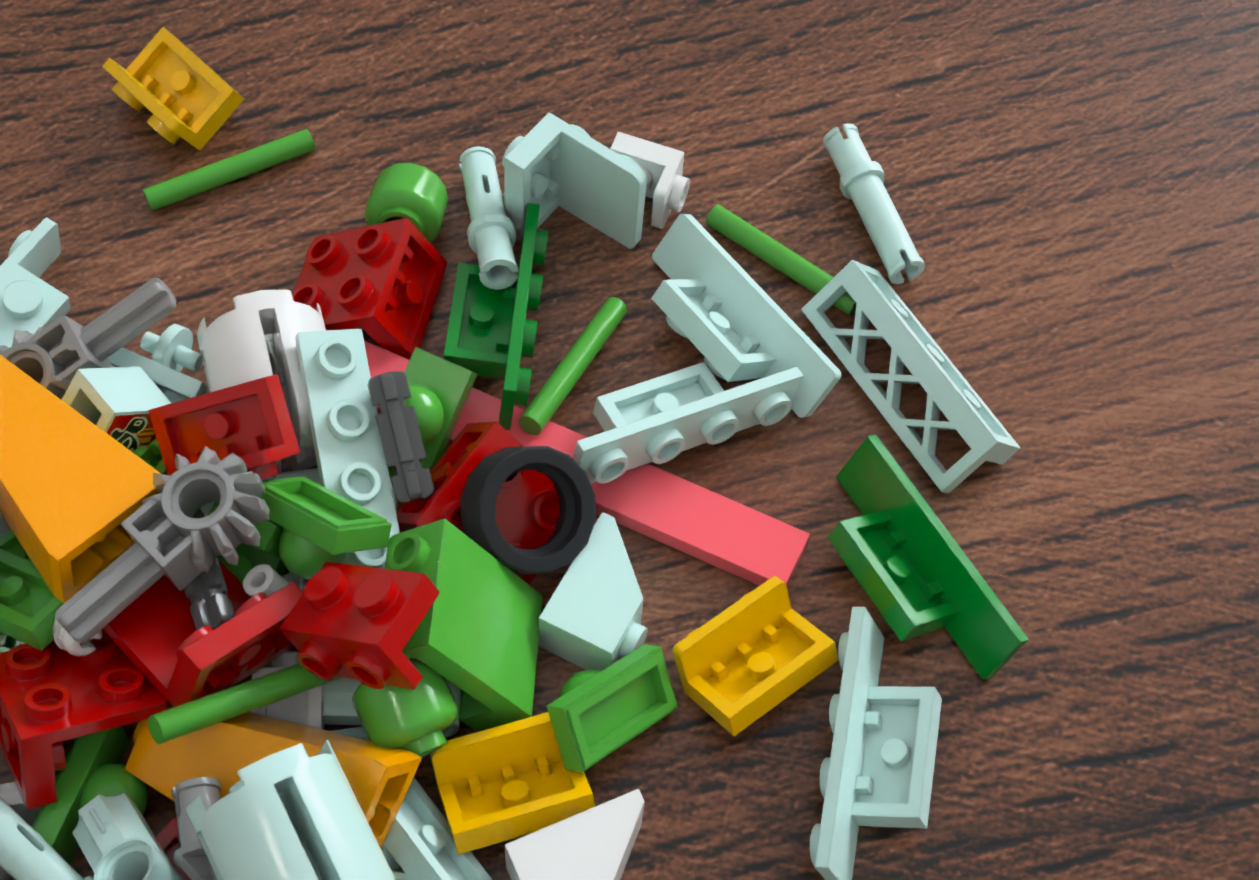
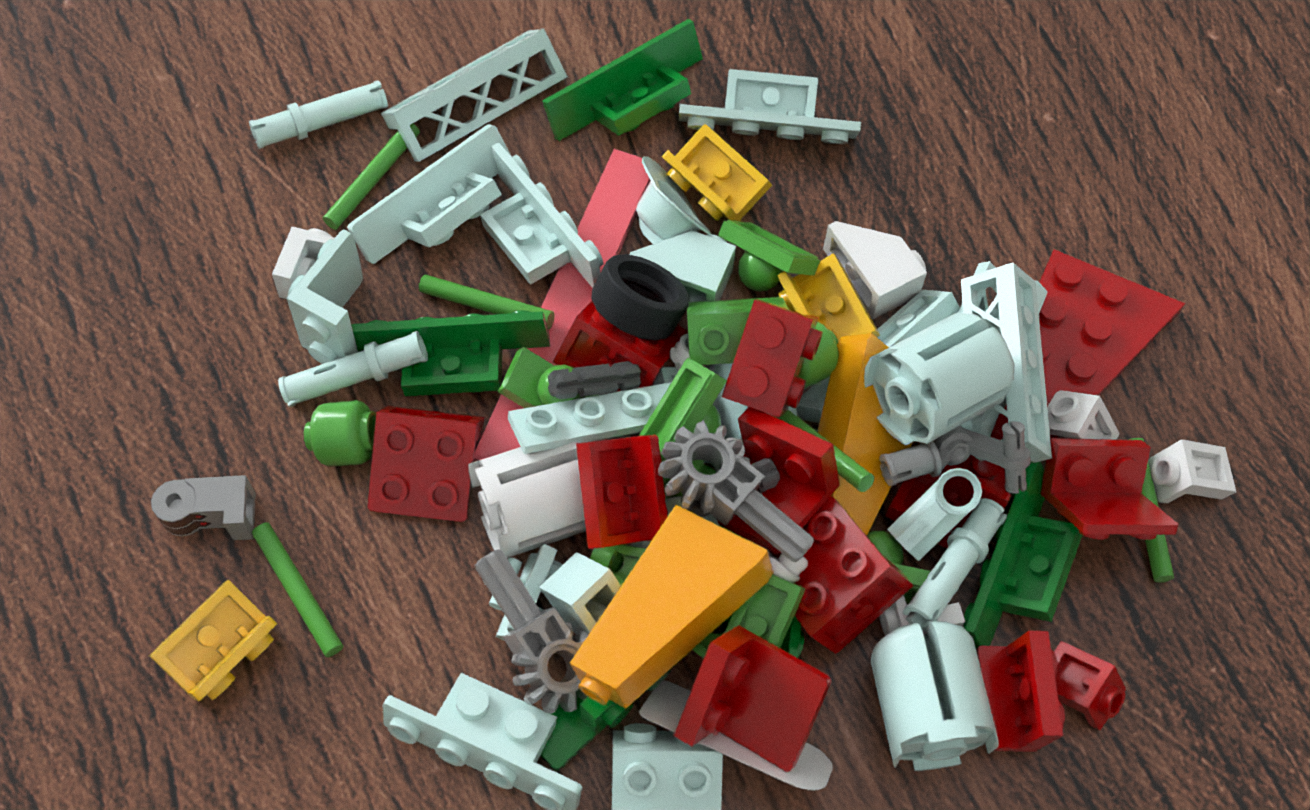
camera: 95 degrees left, 5 degrees up
(340, 101) = (206, 503): none -> light grey leg
(695, 580) = (664, 207): none -> light aqua piece

